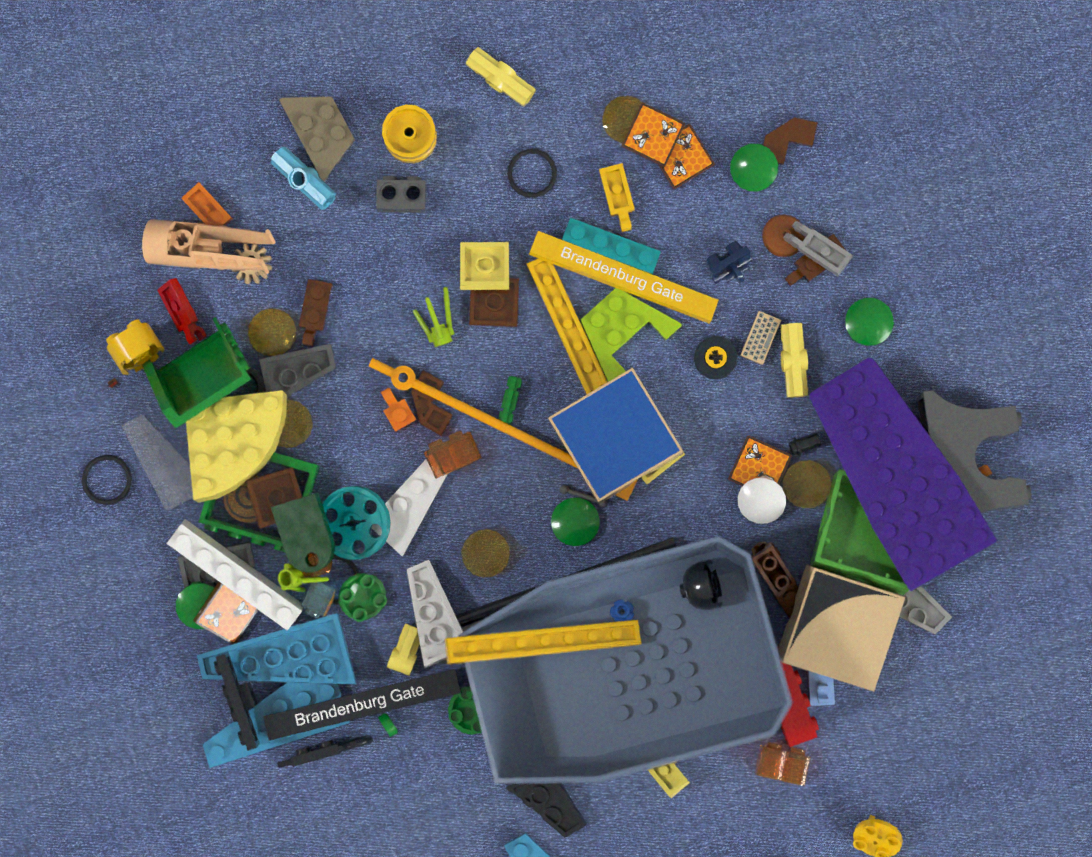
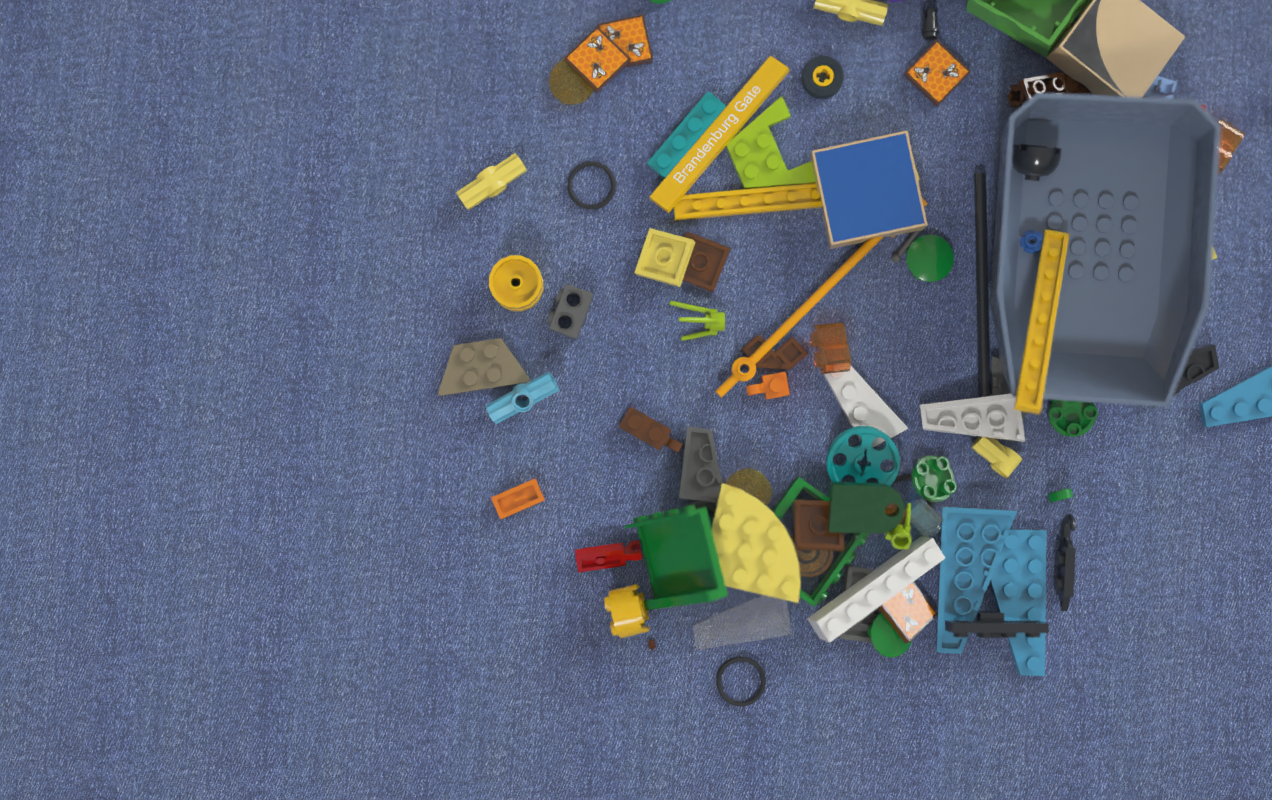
camera: 75 degrees left, 0 degrees up
(174, 245) = (534, 545): light nougat piece -> none
(253, 253) = (577, 476): tan gear -> none
(272, 332) = (656, 477): clear yellow dish -> none
(361, 704) = (1035, 512): black tile -> none
(485, 553) = (931, 350): clear yellow dish -> none
(510, 399) = (796, 278): green axle -> none
(617, 194) = (640, 112): yellow plate -> none
(732, 266) = (737, 23): dark blue hips -> none
(760, 338) = (818, 30): tile -> none
(761, 500) = (969, 80): white dish -> none
(807, 484) = (967, 35): clear yellow dish -> none

